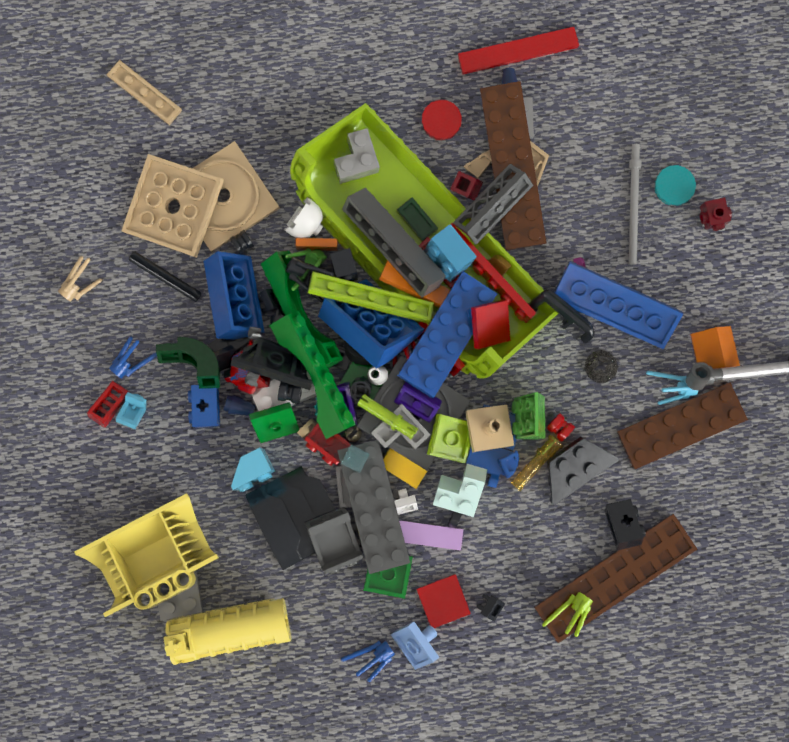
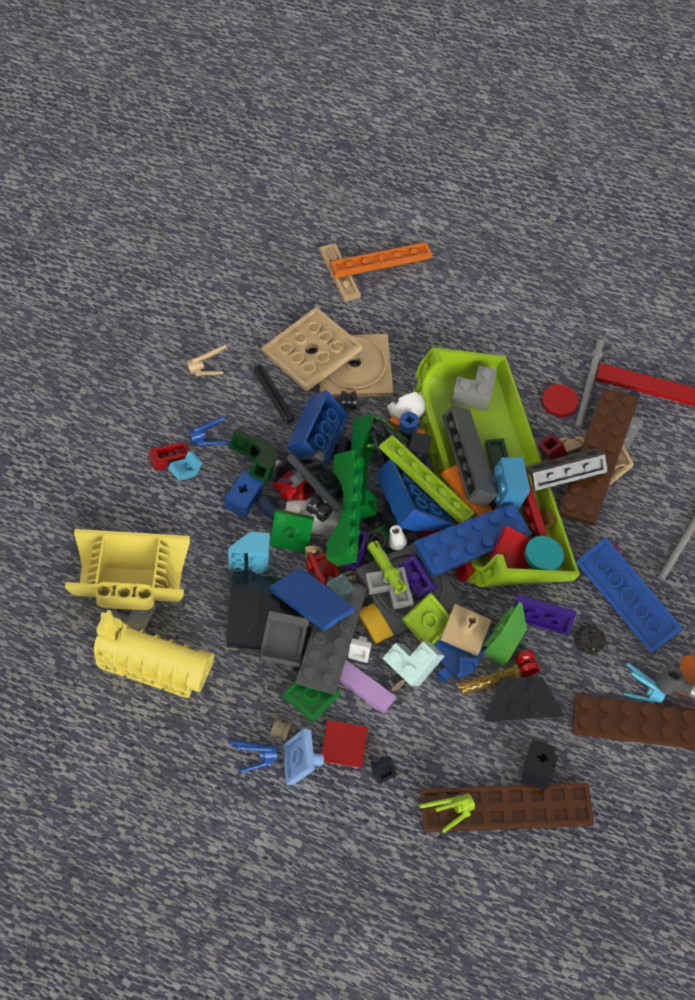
camera: 30 degrees right, 25 degrees down
(177, 54) = (380, 260): none -> orange tile
(319, 246) = (407, 428): none -> blue wheel
(337, 488) = (312, 599): none -> blue tile
(382, 623) = (281, 729): none -> dark tan wheel
(450, 47) = (596, 358): none -> light grey bar
(521, 312) = (544, 553): none -> teal tile
(552, 373) = (546, 615): none -> dark purple tile
(564, 309) = (584, 579): black piece -> none

